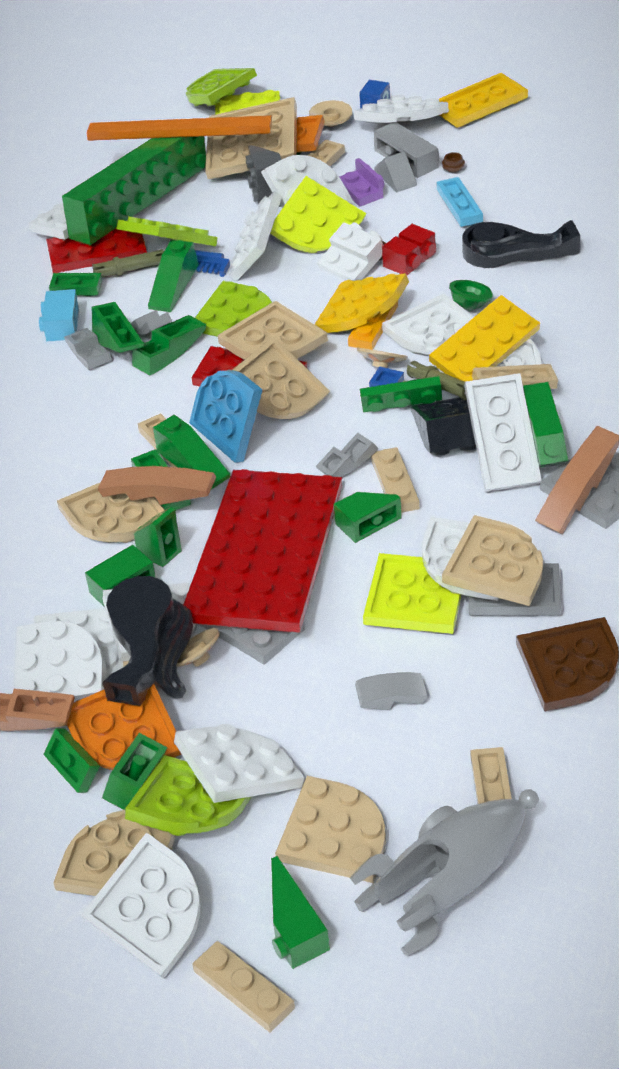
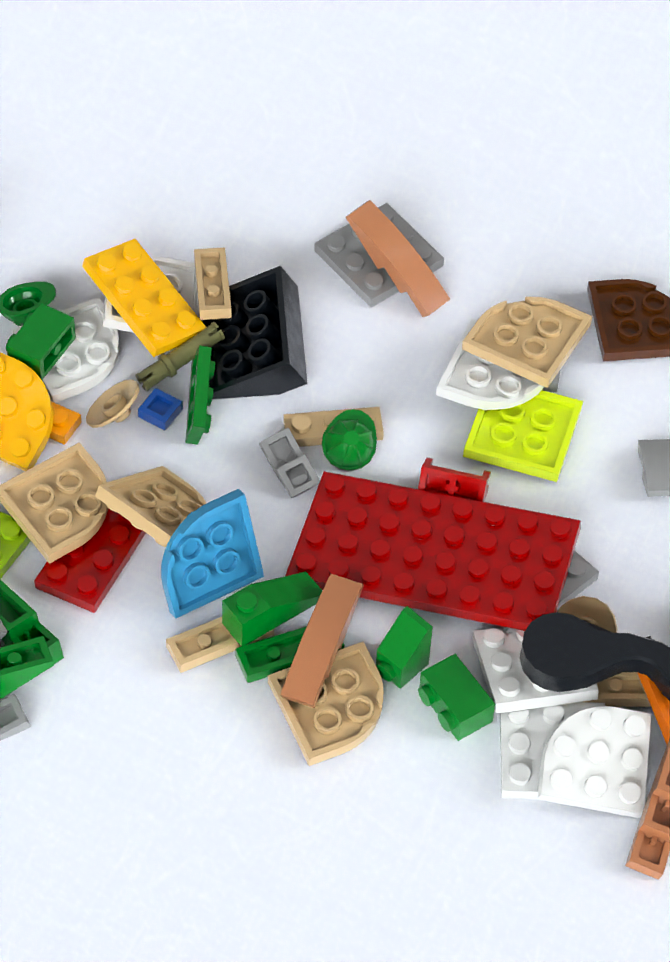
camera: 90 degrees left, 10 degrees up
(339, 550) = (453, 482): none -> red hinge
(366, 513) = (395, 455): green slope -> none
(377, 480) = (350, 440): none -> green piece
(424, 300) = (42, 339): none -> green brick
(502, 432) = (316, 303): white plate -> none
(545, 425) = (315, 269): green slope -> none

